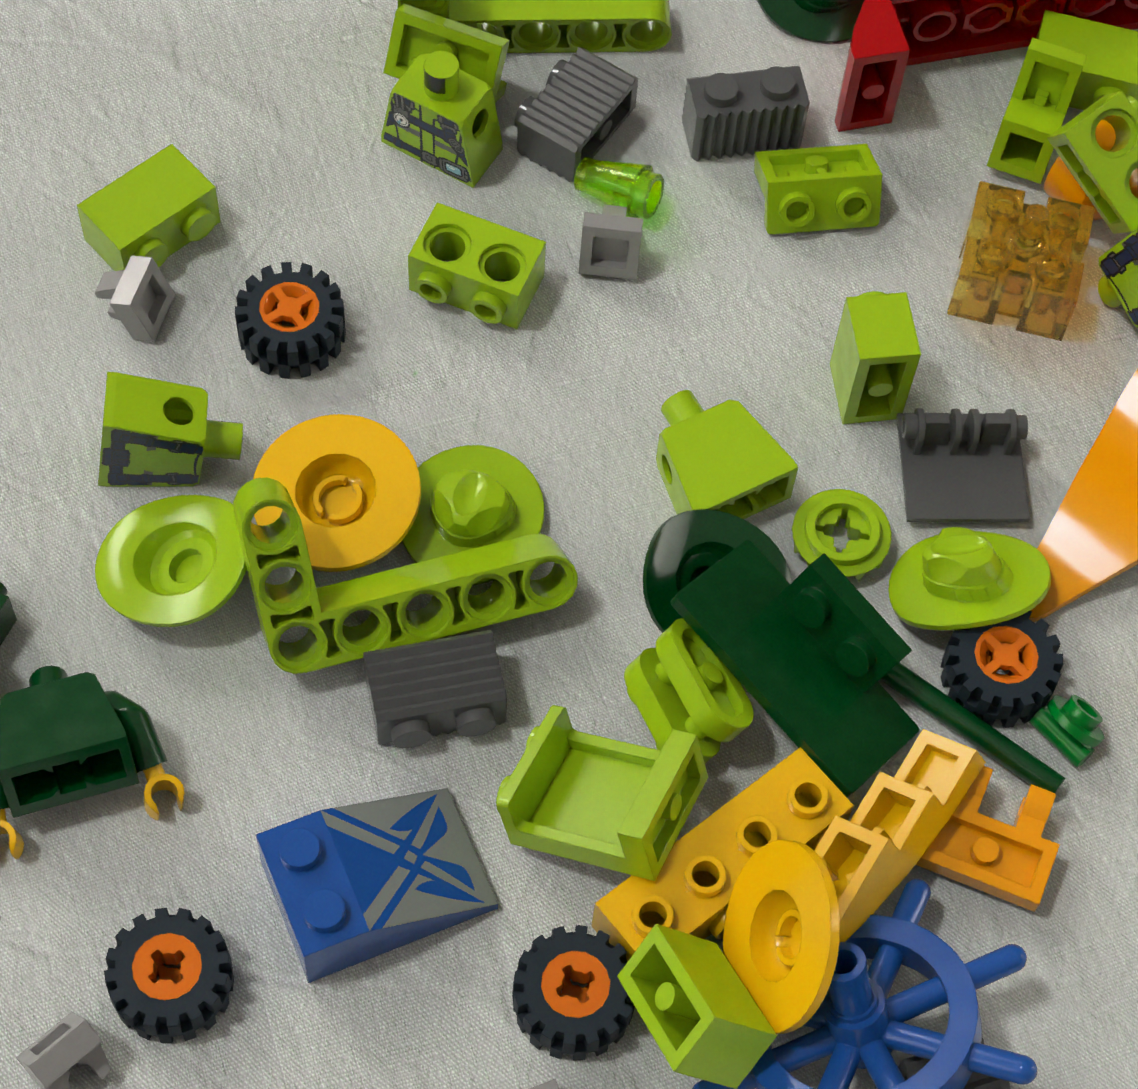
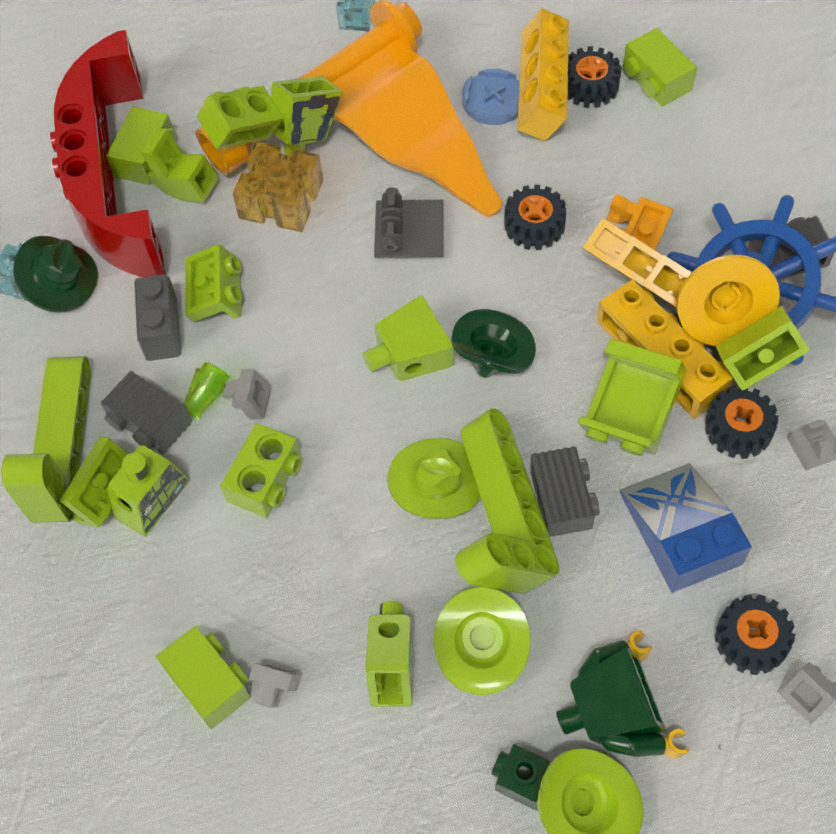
camera: 80 degrees left, 0 degrees up
(294, 298) = (291, 570): black wheel -> none
(349, 485) = (423, 542): yellow hat -> none
(687, 690) = (566, 358): lime brick -> none
(806, 657) = (541, 298): dark green bracket -> none
(864, 524) = (444, 276): lime gear -> none
(874, 357) = (347, 254): lime brick -> none
(967, 580) = (486, 227): lime hat -> none
(972, 728) = (559, 245): dark green bar -> none
(1070, 727) = (570, 189): green plate -> none

